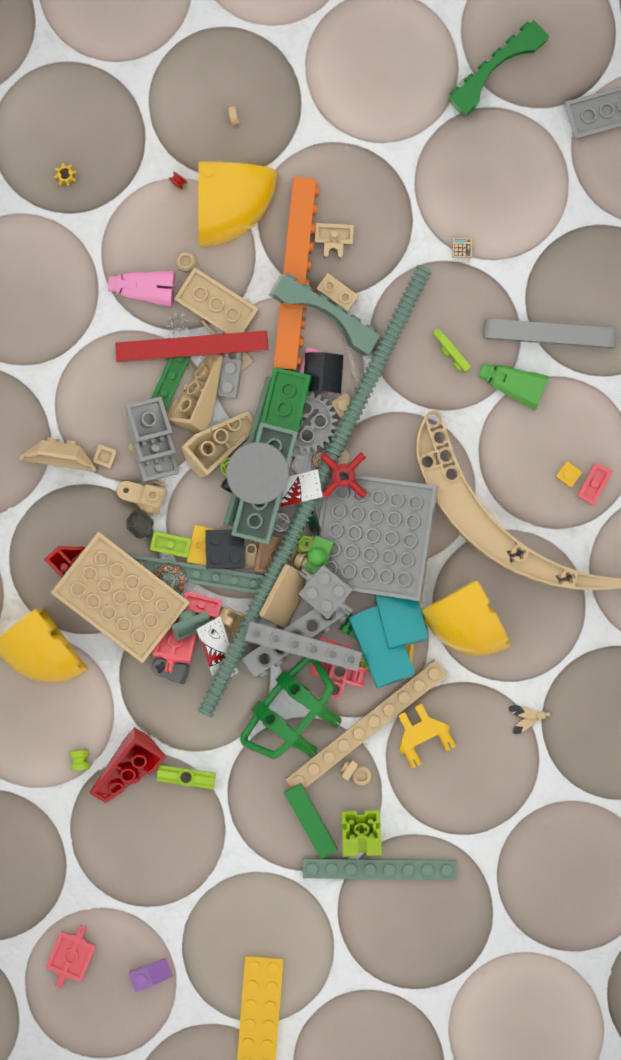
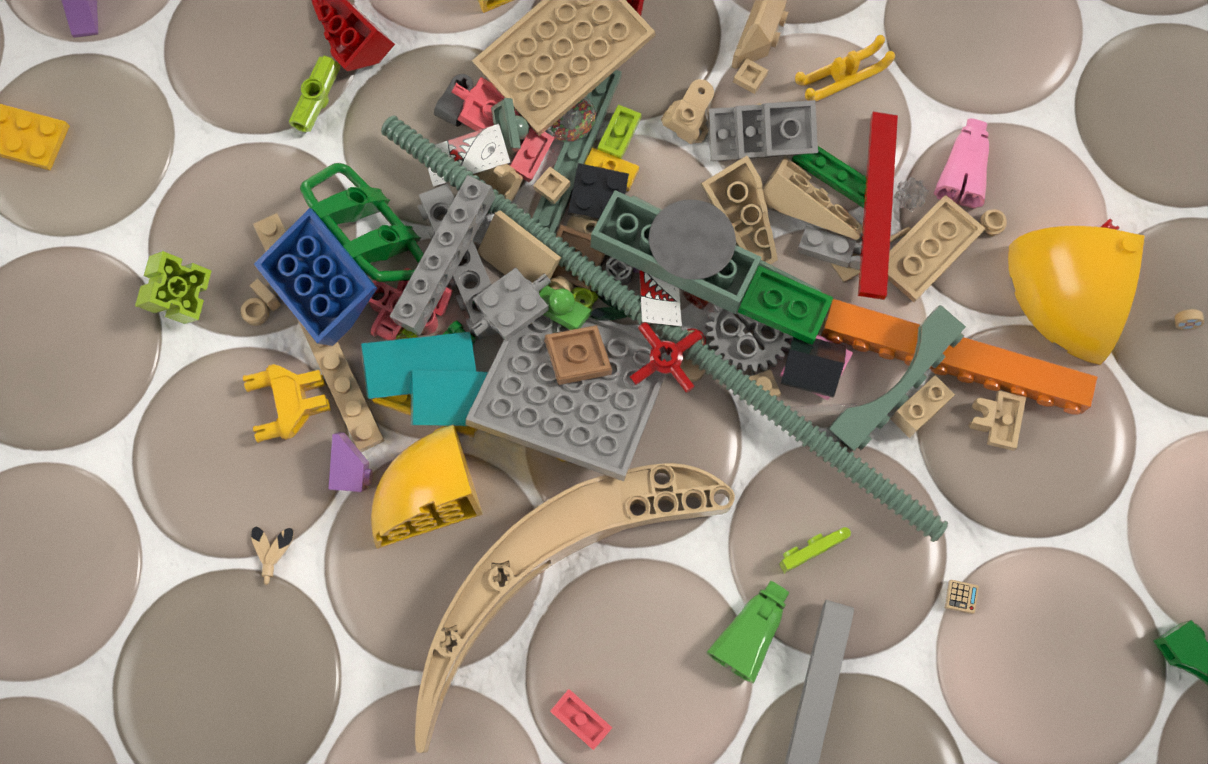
camera: 105 degrees right, 15 degrees down
(59, 176) = (1129, 95): yellow gear -> none
(86, 387) = (845, 71): none -> yellow piece
(140, 524) = (653, 99): clear smoke head -> none
(227, 583) = (551, 185): none -> tan plate
(311, 820) = (214, 232): green tile -> none
(339, 730) = (317, 279): none -> blue slope
(352, 537) = (577, 355): none -> medium nougat tile
(379, 869) = (122, 314): sand green plate -> none
(461, 677) = (348, 466): none -> medium lavender slope
(568, 474) = (603, 684): yellow plate -> none

